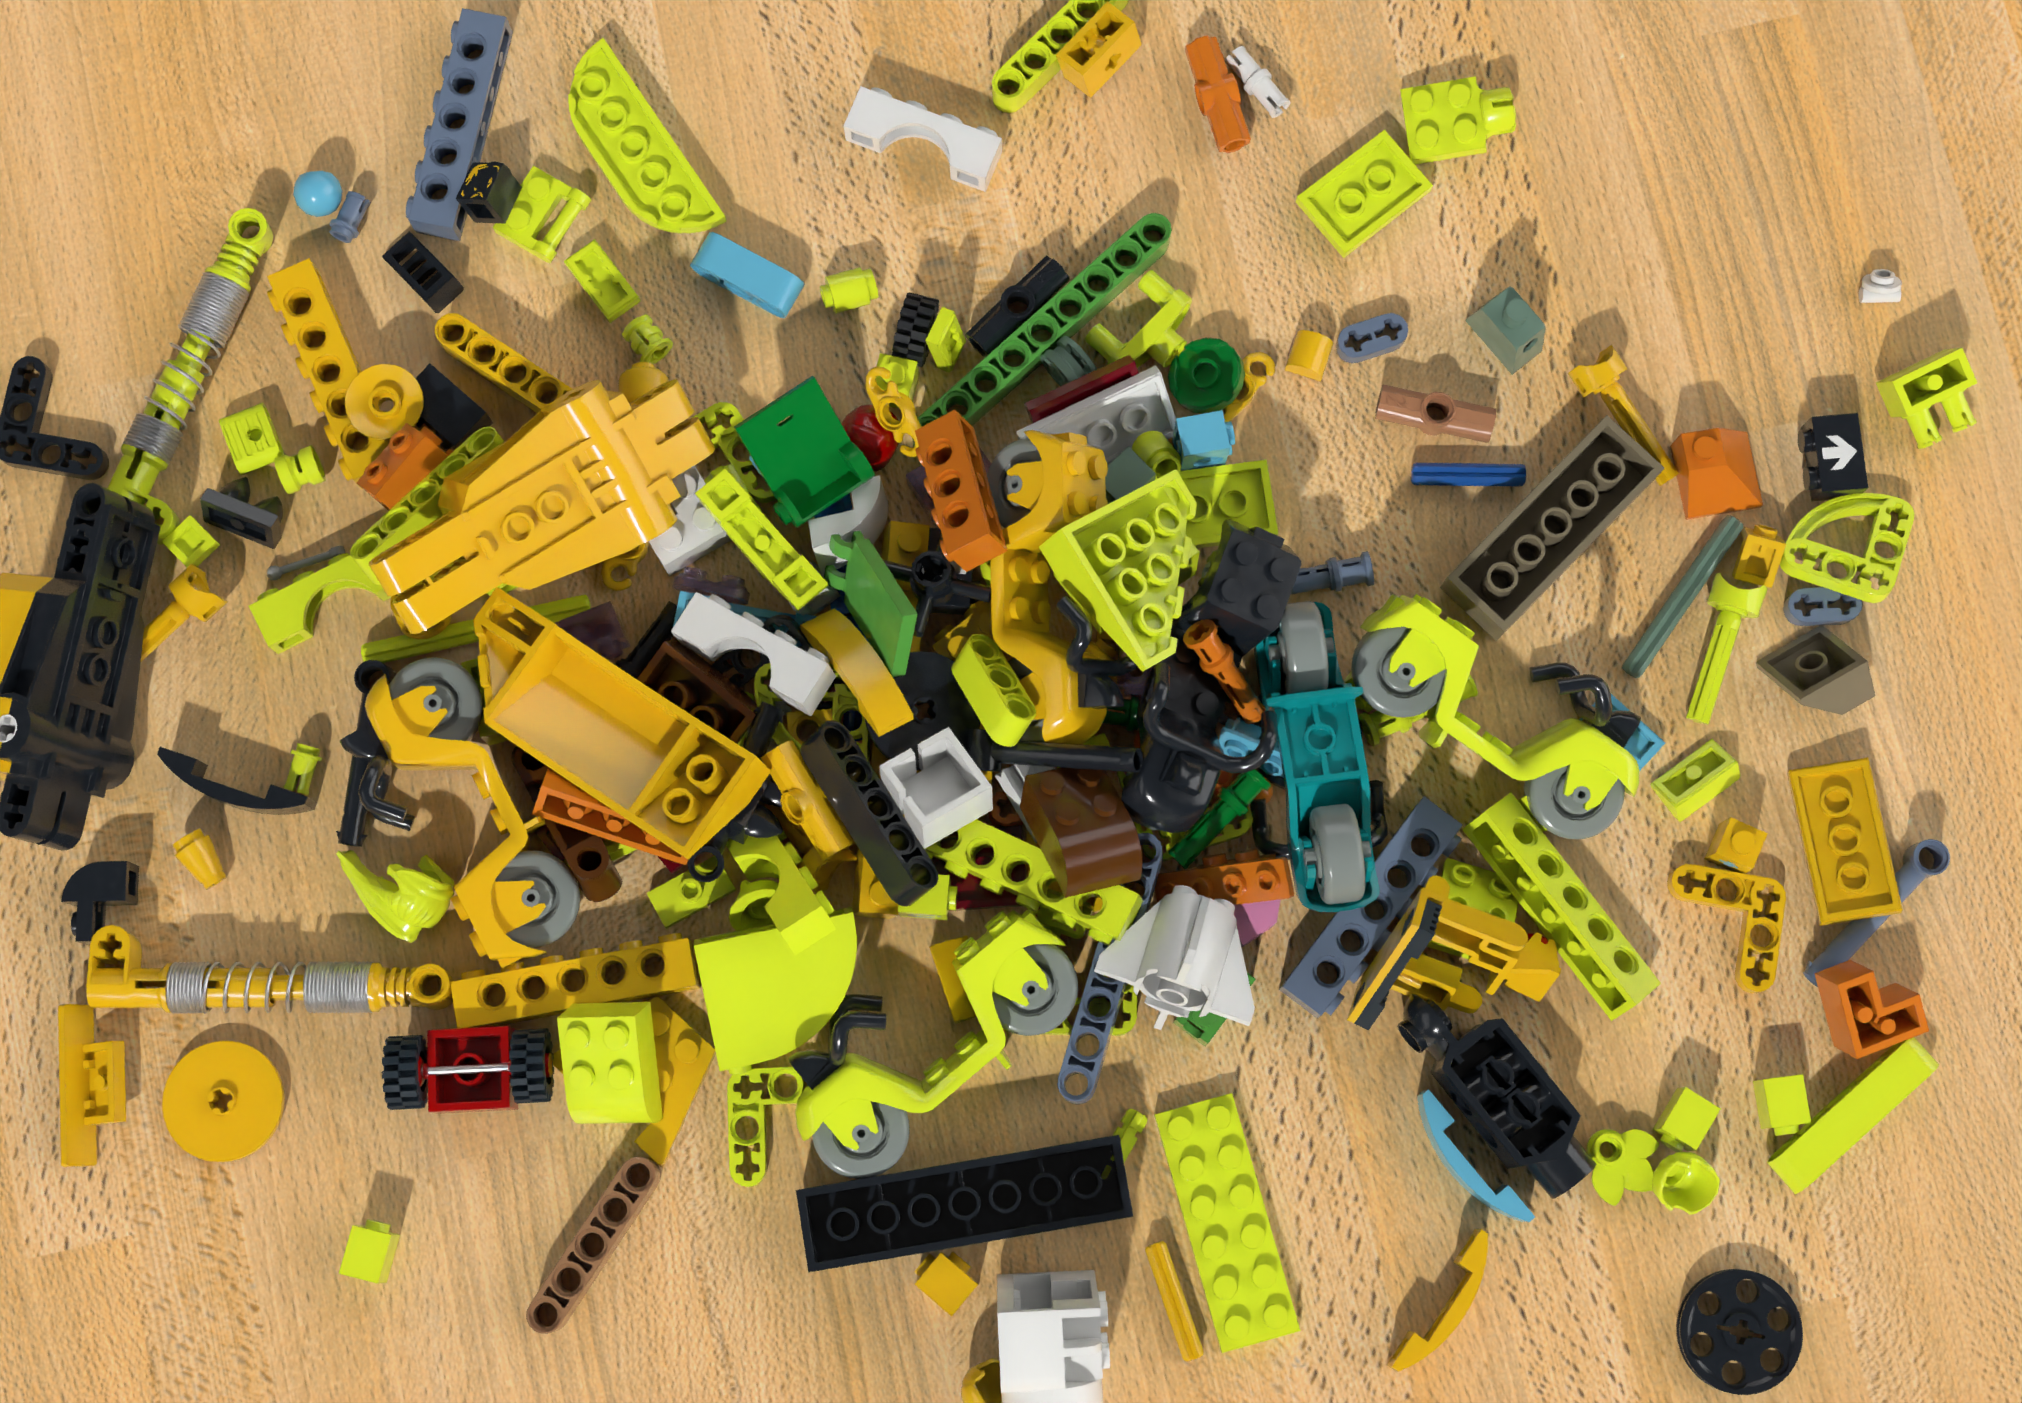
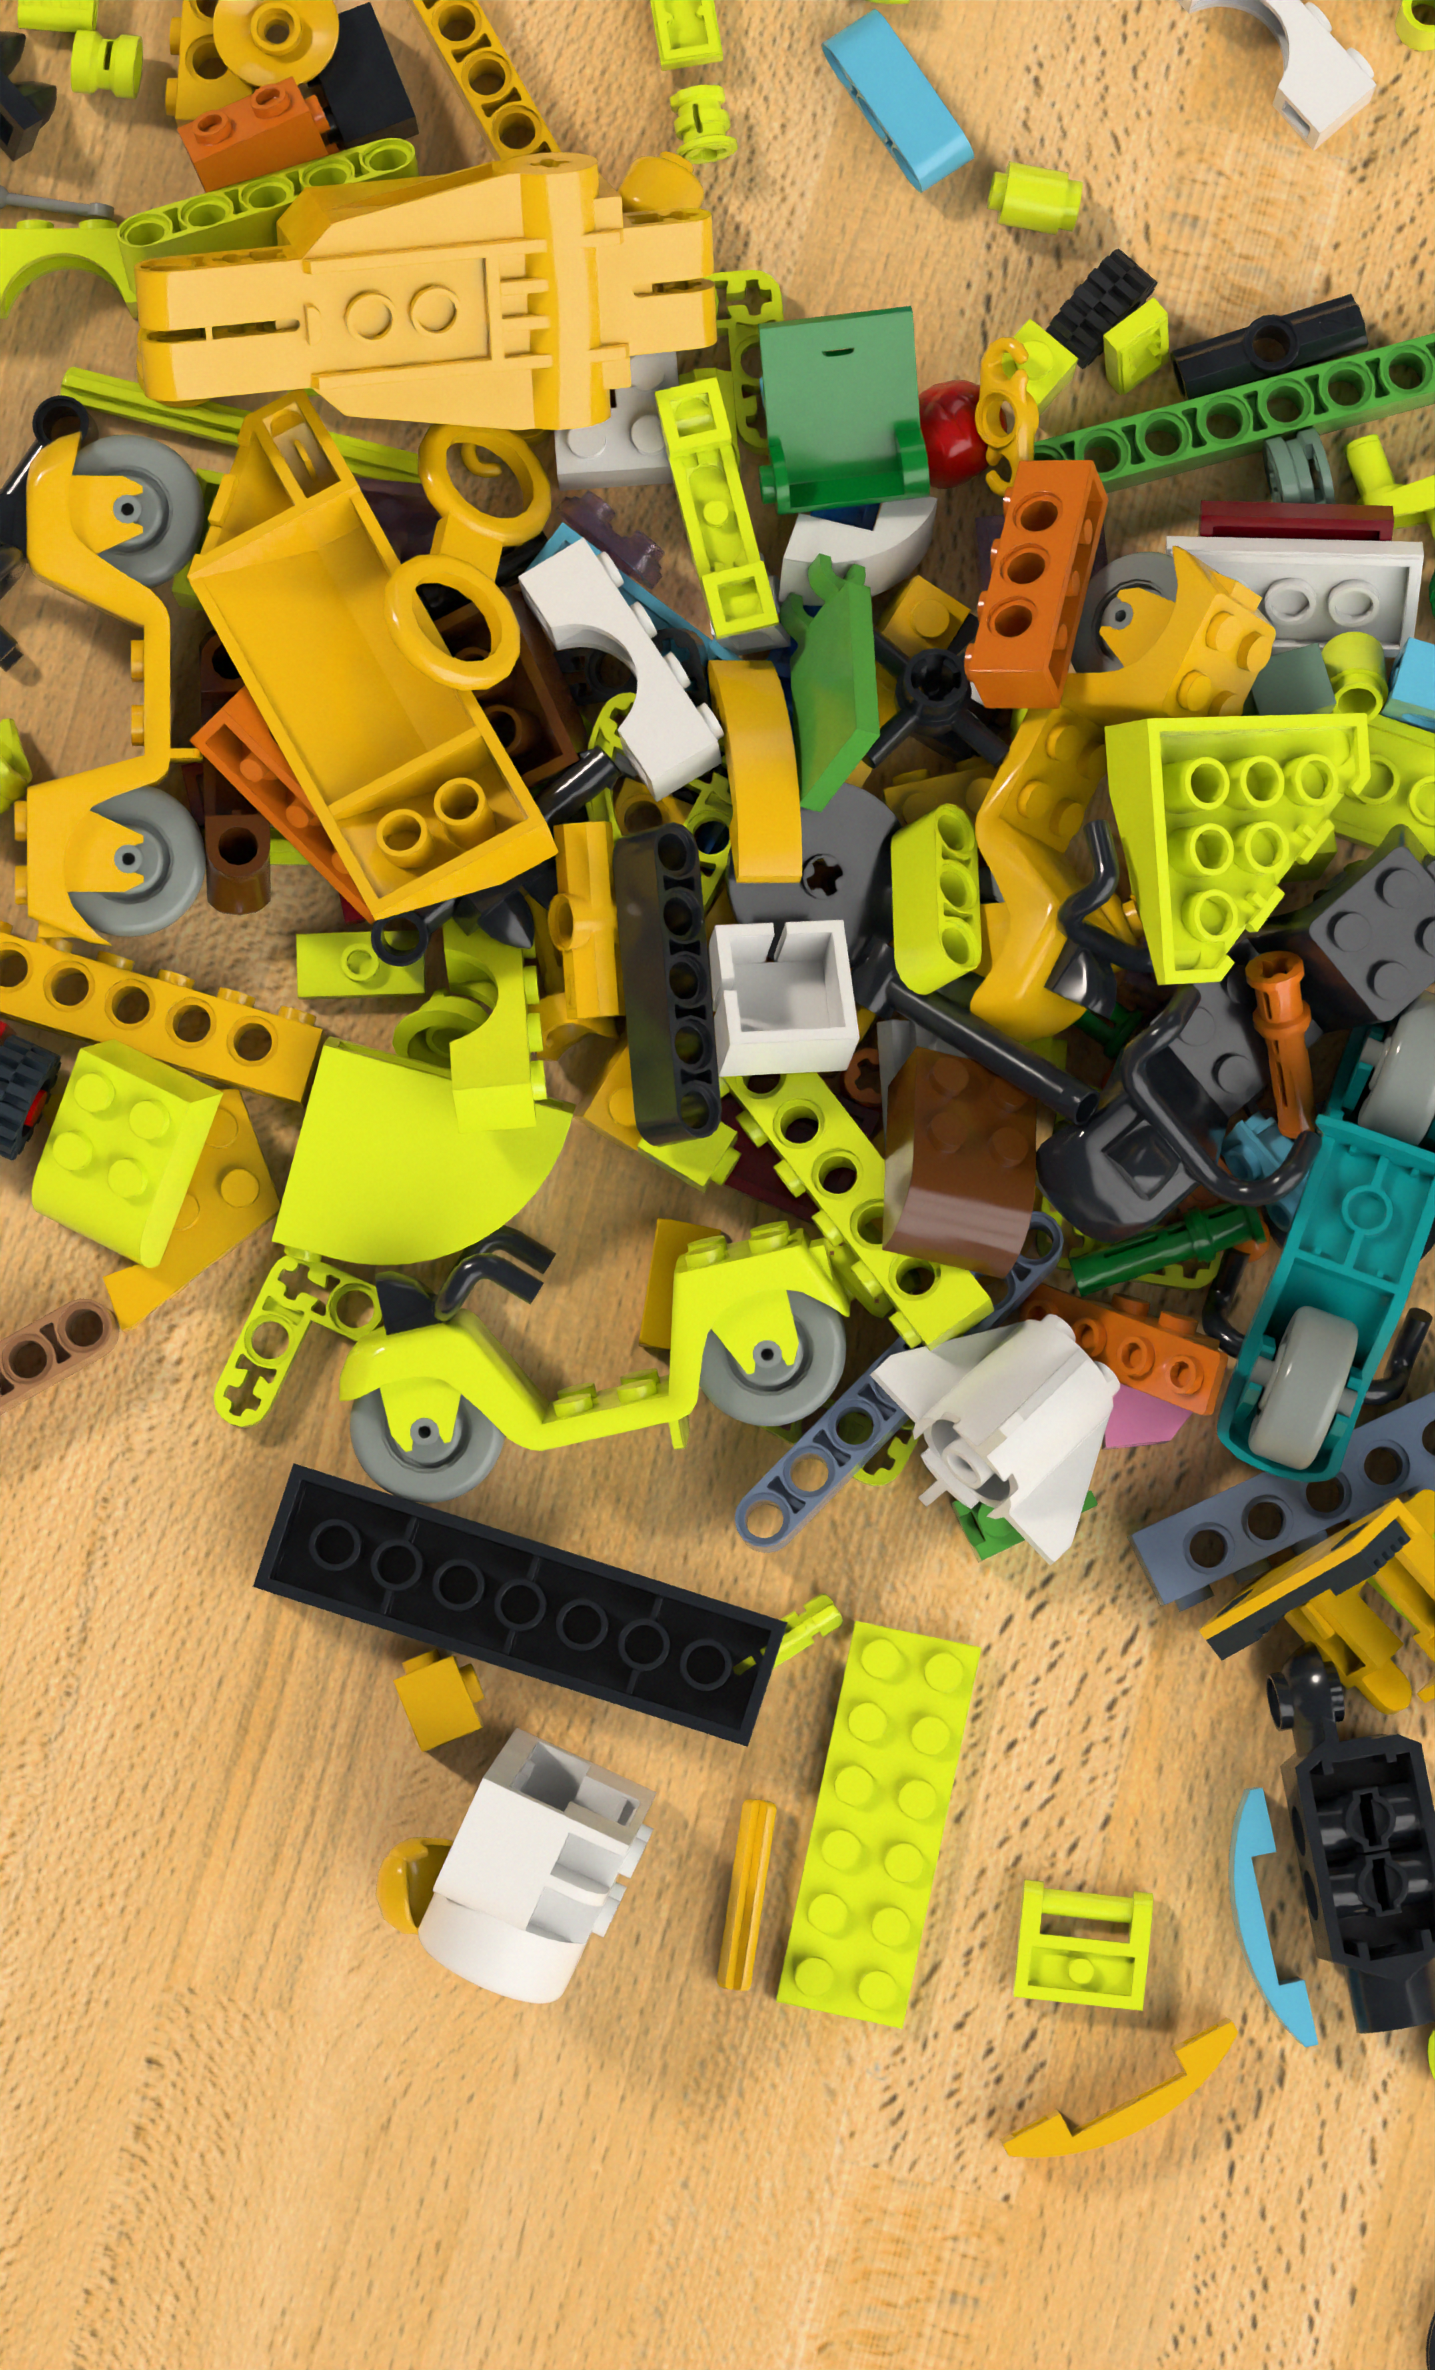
camera: 30 degrees right, 5 degrees up
(636, 634) = (467, 556): none -> yellow bar
(1381, 1243) = (1078, 1967): none -> neon yellow plate

